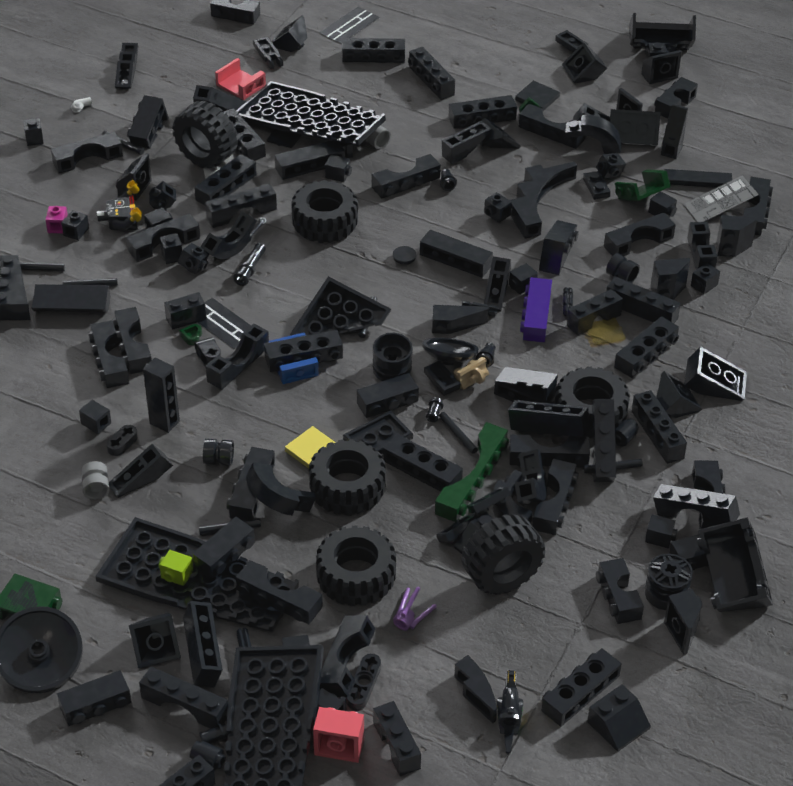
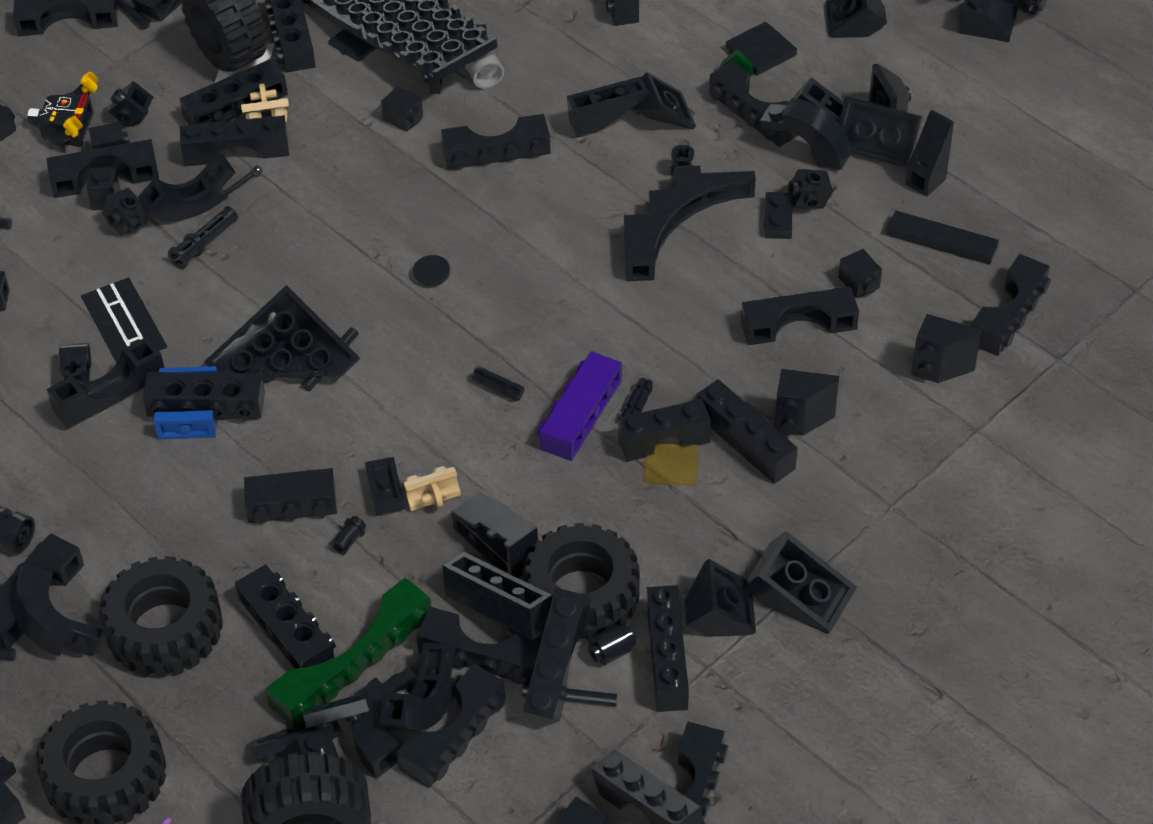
camera: 20 degrees right, 5 degrees up
(137, 171) = (111, 66): black slope -> none
(185, 310) = (73, 292): black piece -> none
(191, 334) = (70, 329): dark green tile -> none
(249, 181) = (277, 107): none -> tan hips
(306, 159) = (365, 85): black brick -> none
(307, 445) = (141, 544): light yellow tile -> none
(324, 226) = (350, 198): black tyre -> none
(379, 431) = (239, 554): black tile -> none
(392, 356) = (321, 435): black wheel -> none
(448, 181) = (554, 162): black cone -> none
(450, 350) = (414, 441): black dish -> none
(453, 318) = (453, 392): black slope -> none
(456, 253) = (506, 285): black brick -> none
(458, 432) = (366, 579): black bar -> none
(487, 352) = (469, 463): black cone -> none
(493, 109) = (661, 58): black brick -> none
(497, 207) = (603, 222): black brick -> none
(498, 282) = (542, 348): black slope -> none
(520, 277) = (579, 345): black brick -> none
(525, 161) = (682, 156): none -> black bush
(557, 246) = (662, 306): black wedge -> none
(623, 269) = (743, 368): black wheel -> none
(646, 347) = (716, 507): black brick -> none
(654, 182) = (865, 235): dark green panel -> none
(661, 67) = (972, 39): black slope -> none
(680, 91) = (986, 83): black arch -> none
(700, 245) = (884, 358): black arch -> none
(705, 278) = (866, 411): black brick -> none
(721, 199) = (957, 281): light grey sticker -> none

